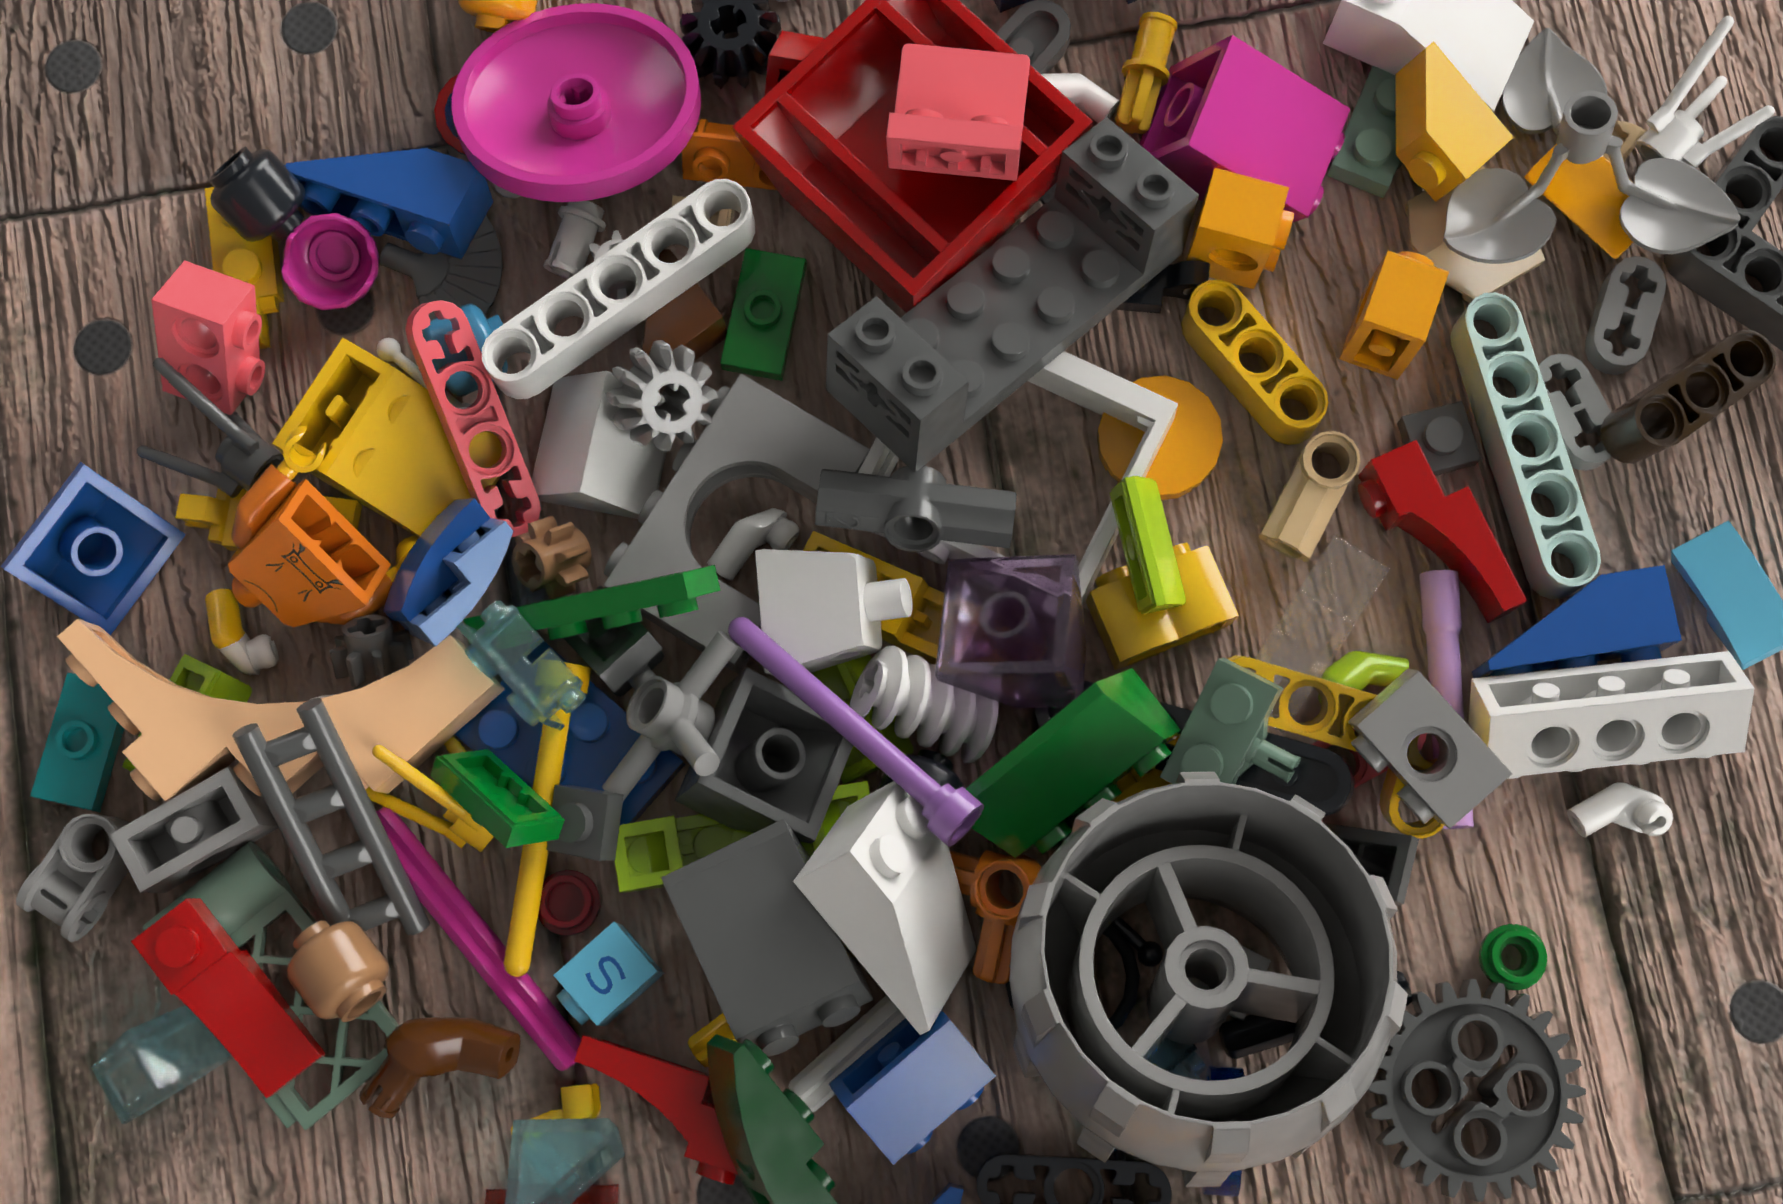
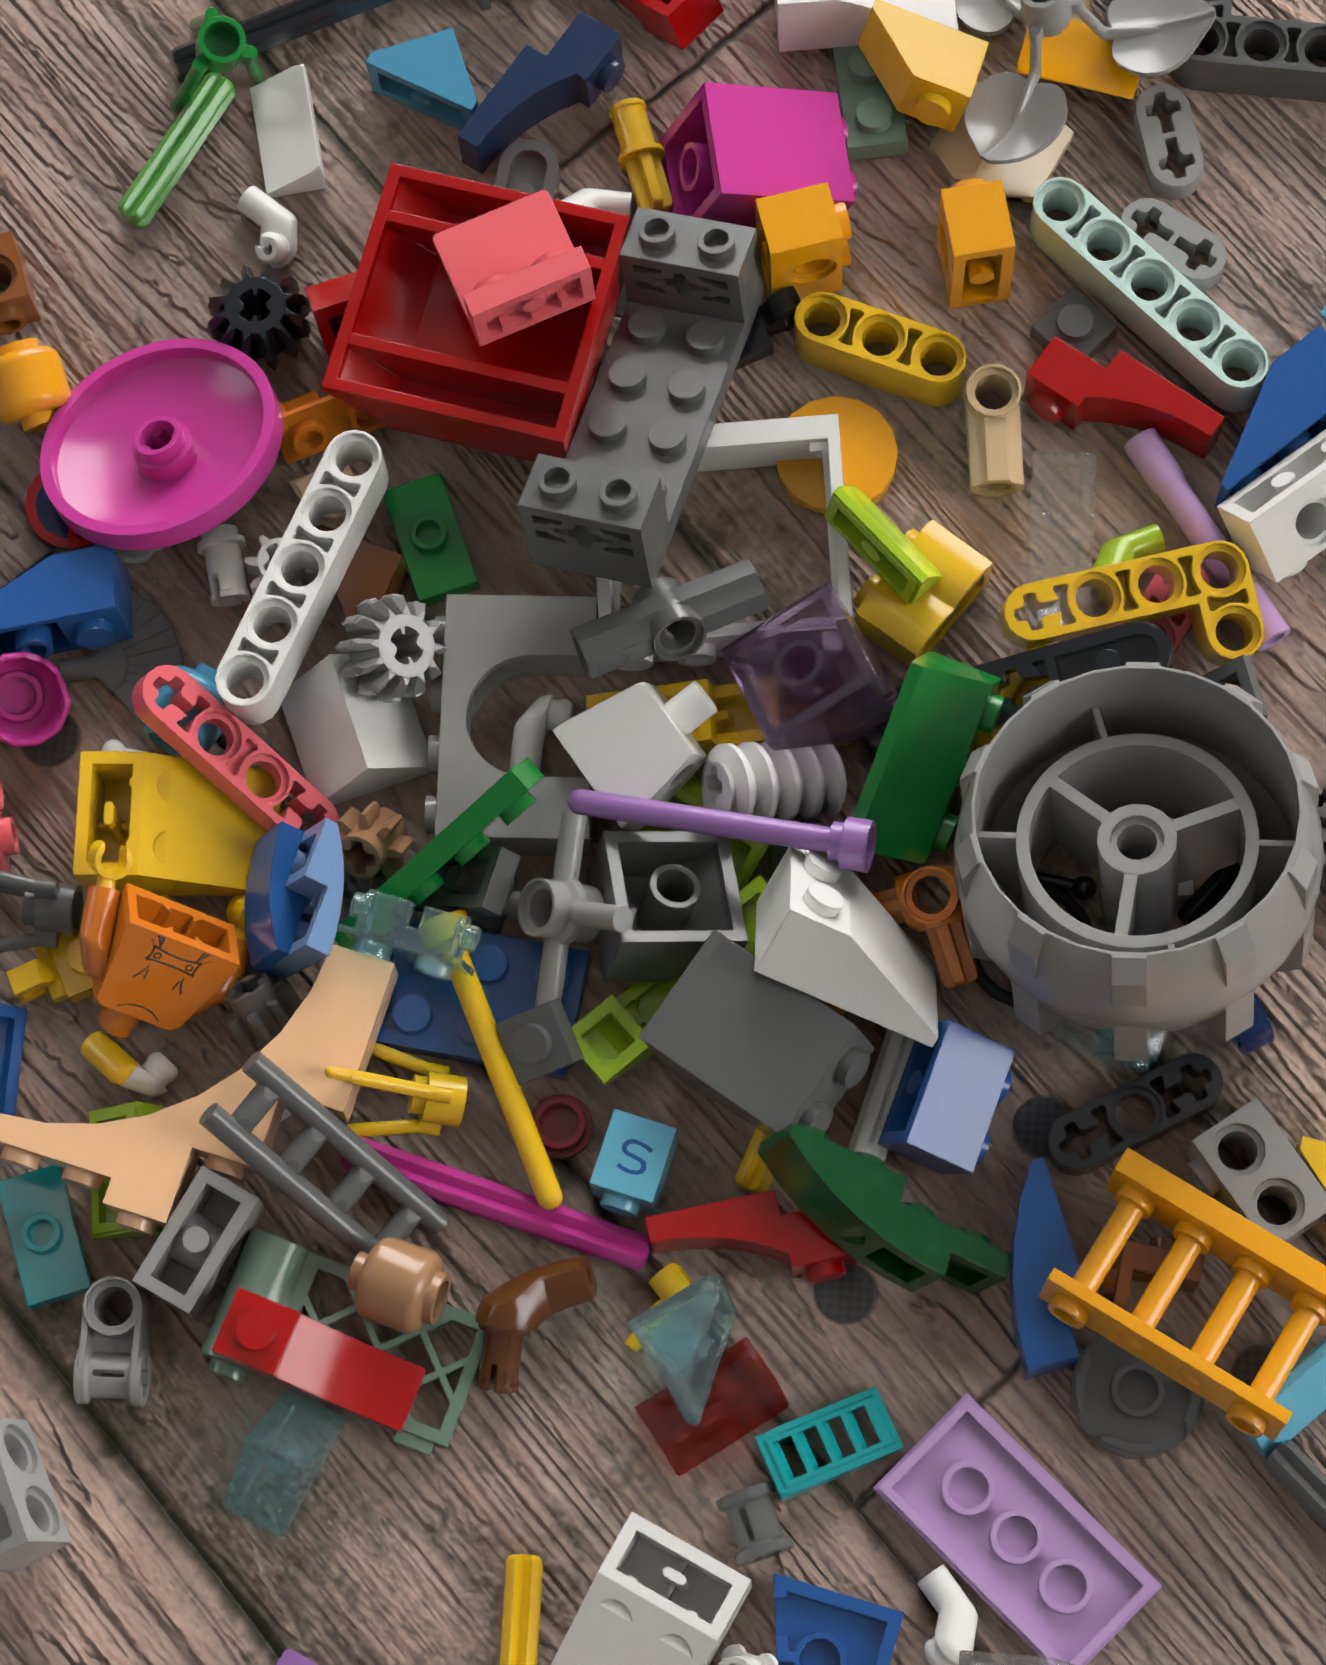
camera: 25 degrees left, 5 degrees down
(497, 798) = (453, 1060): green plate -> none
(1230, 728) = (1041, 645): sand green plate -> none
(1465, 764) = (1249, 564): light grey brick -> none
(1688, 396) = (1258, 179): dark brown beam -> none

